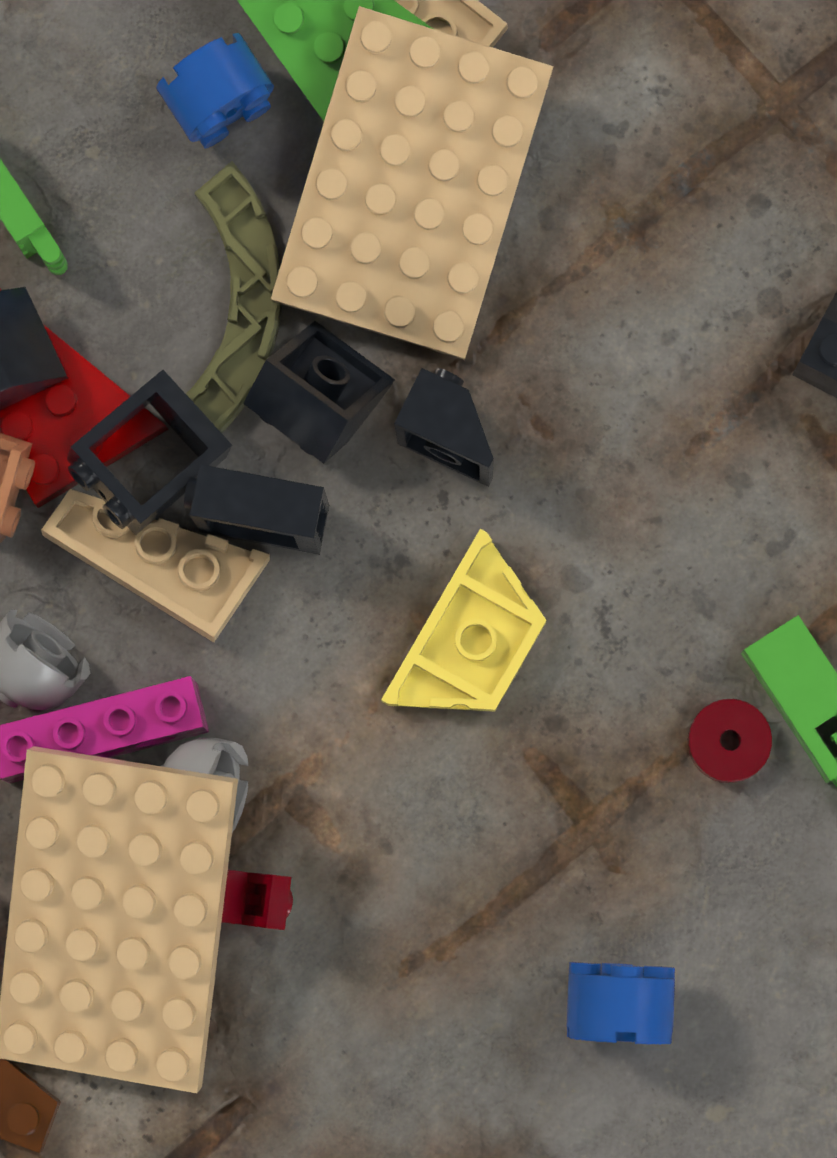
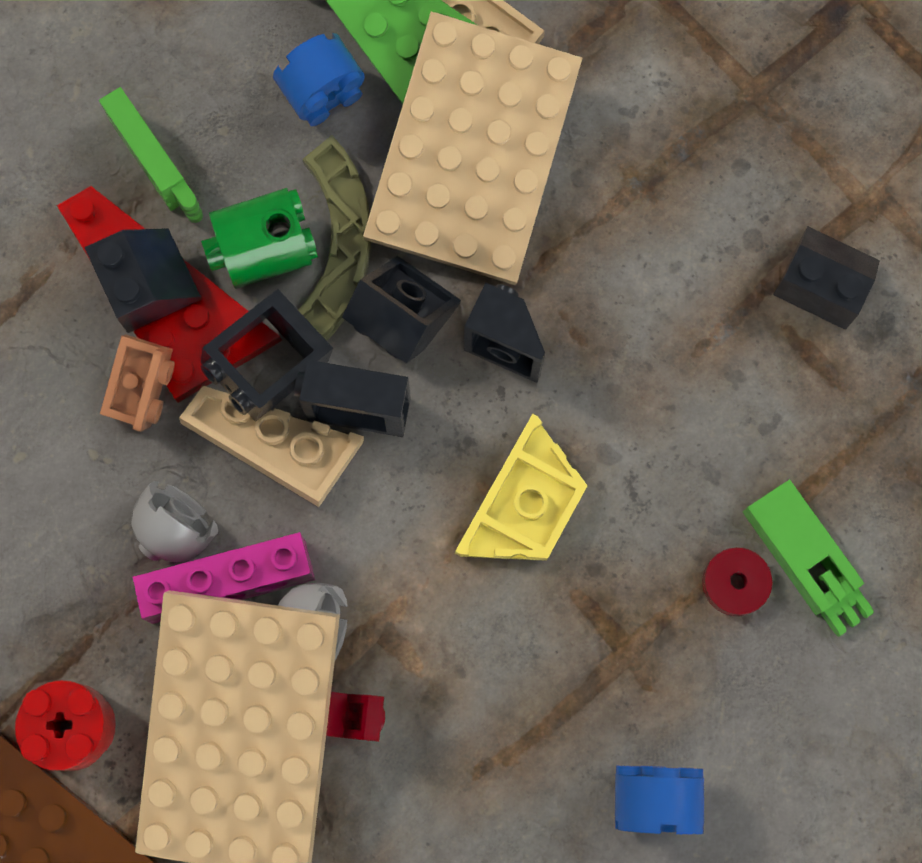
camera: 10 degrees left, 5 degrees down
(122, 307) = (246, 241): none -> green cylinder

